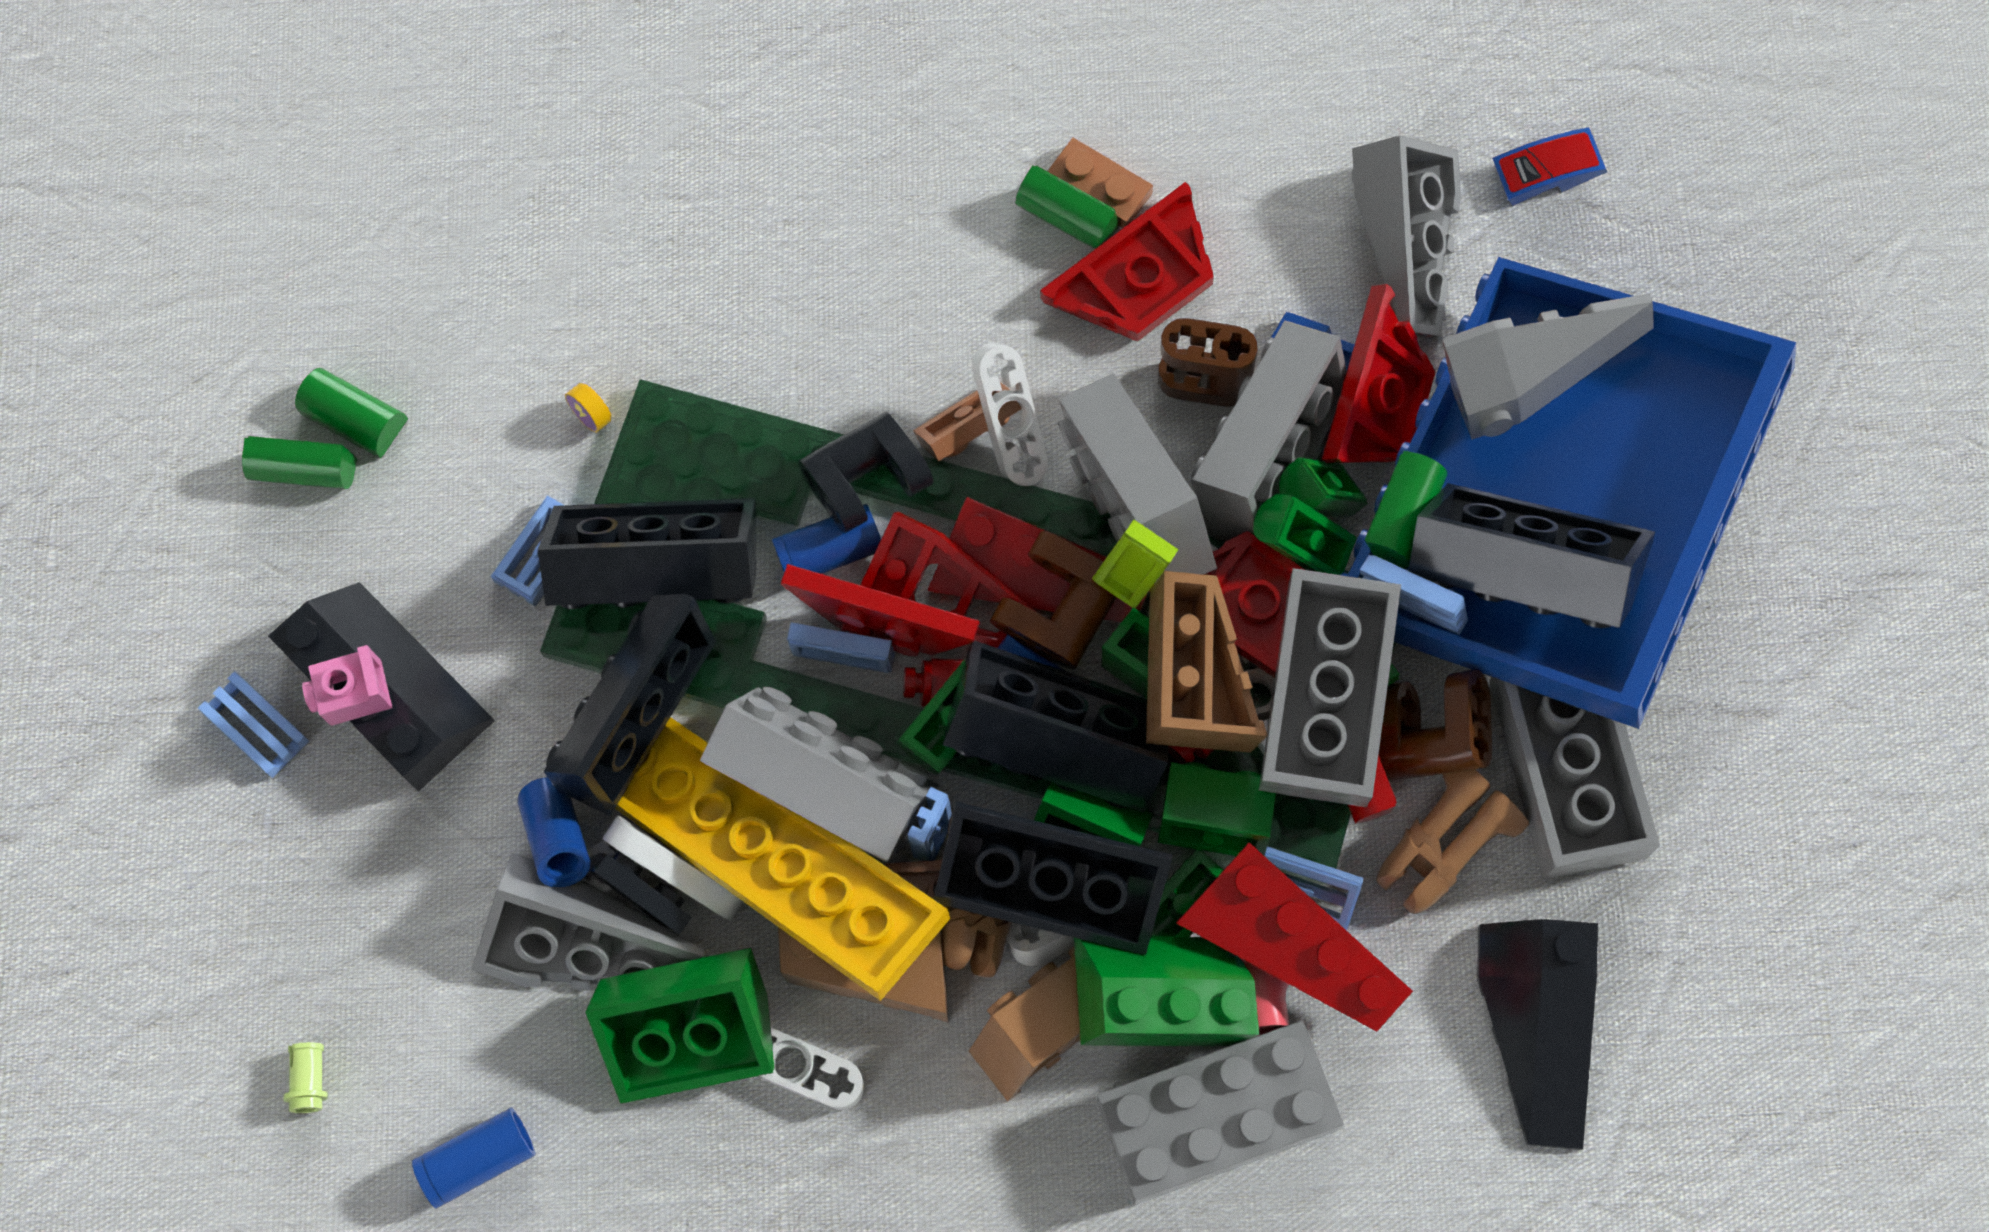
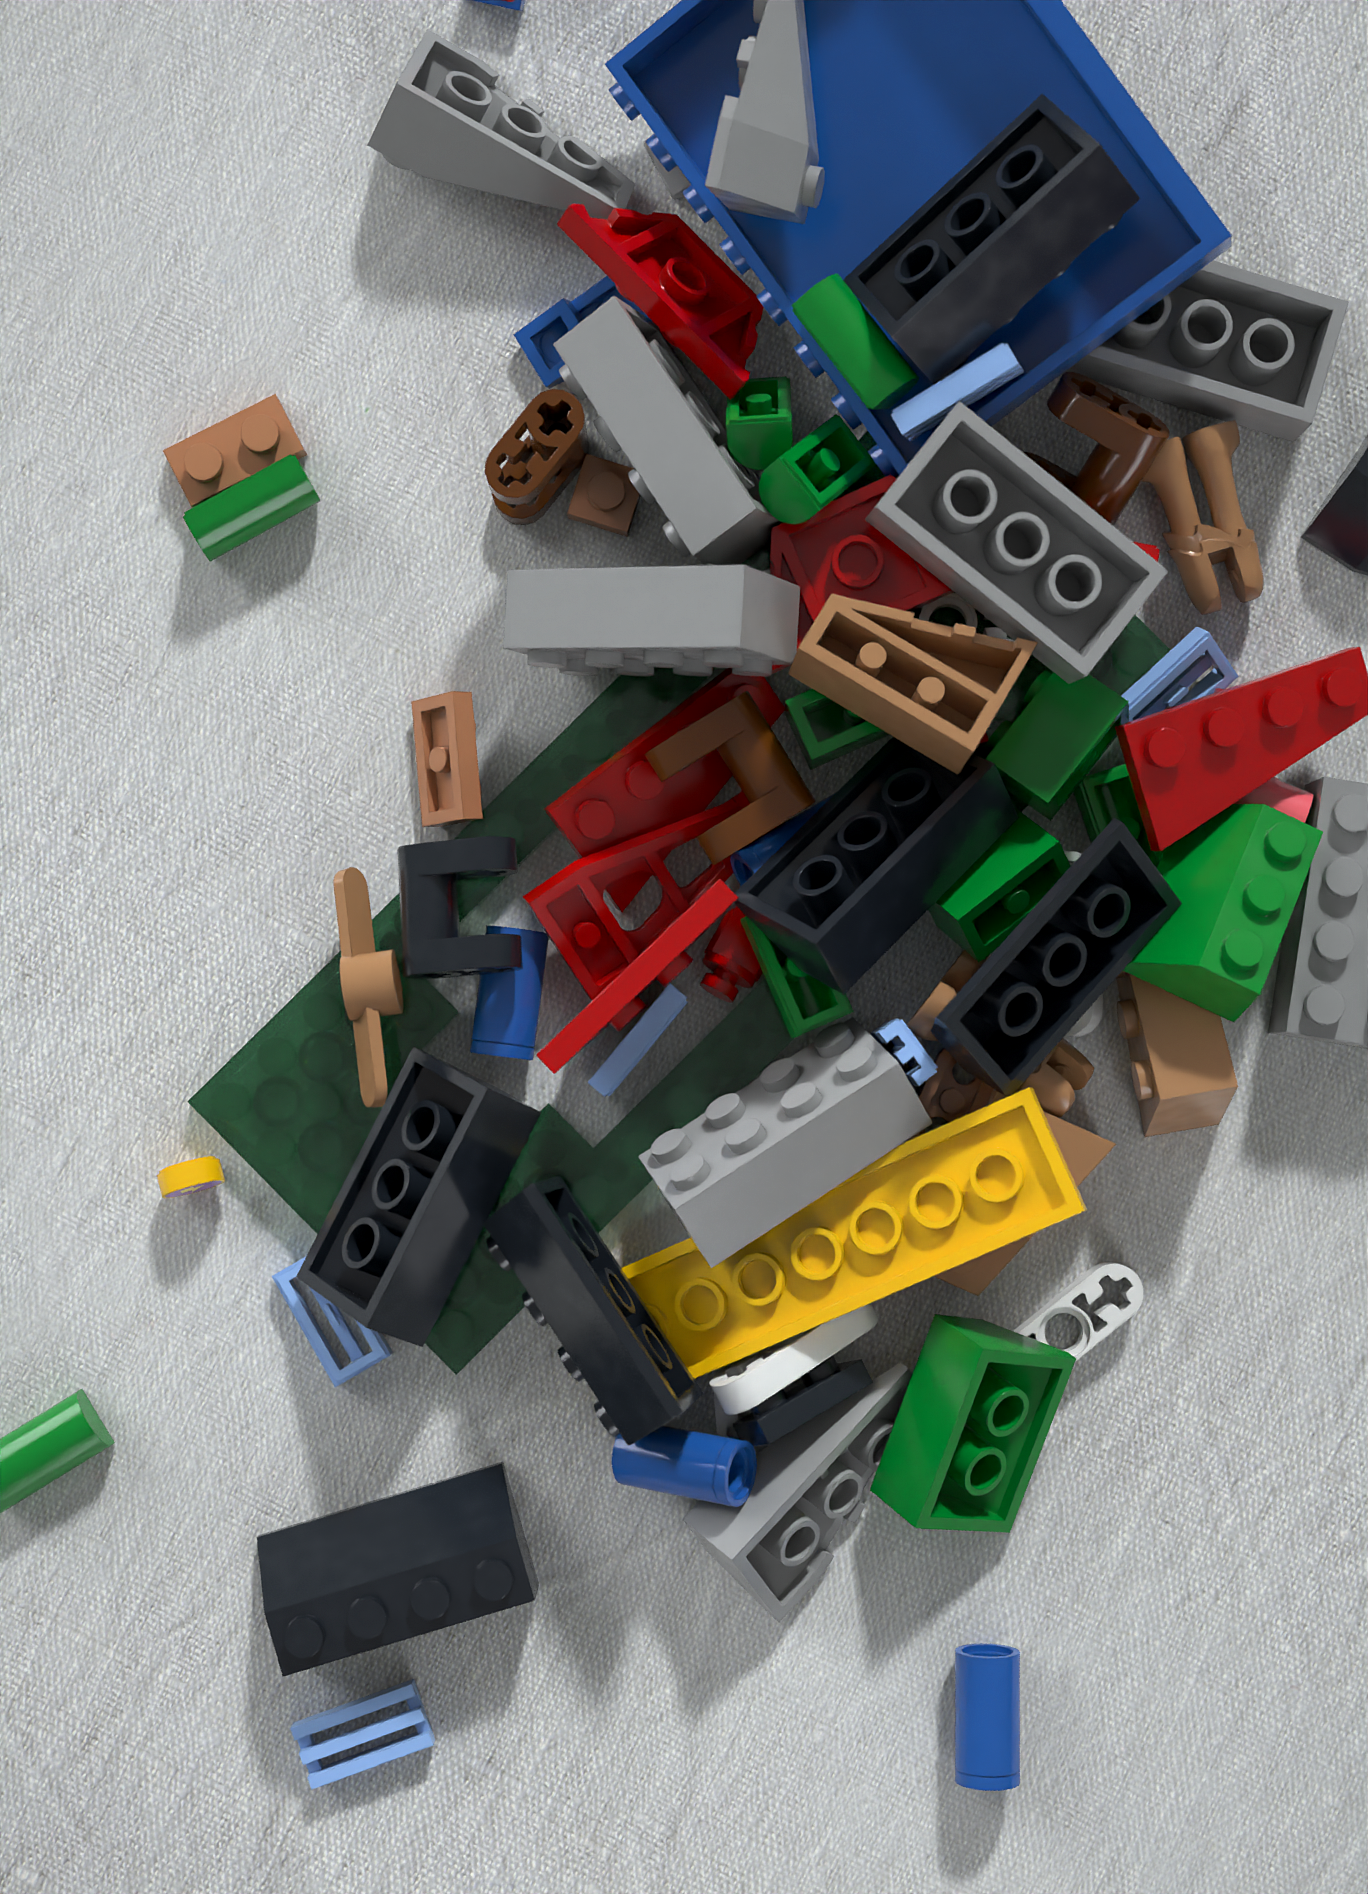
camera: 70 degrees left, 15 degrees up
(298, 462) = (75, 1542): green brick -> none
(305, 1078) = (802, 1856): yellowish green pin -> none
(361, 696) = (410, 1594): bright pink brick -> none
(786, 436) = (368, 982): none -> medium nougat piece
(1007, 452) = (451, 716): white beam -> none
(1134, 564) = (764, 674): lime tile -> none
(1139, 272) = (374, 468): red wing -> none
(1202, 425) = (604, 496): none -> nougat plate

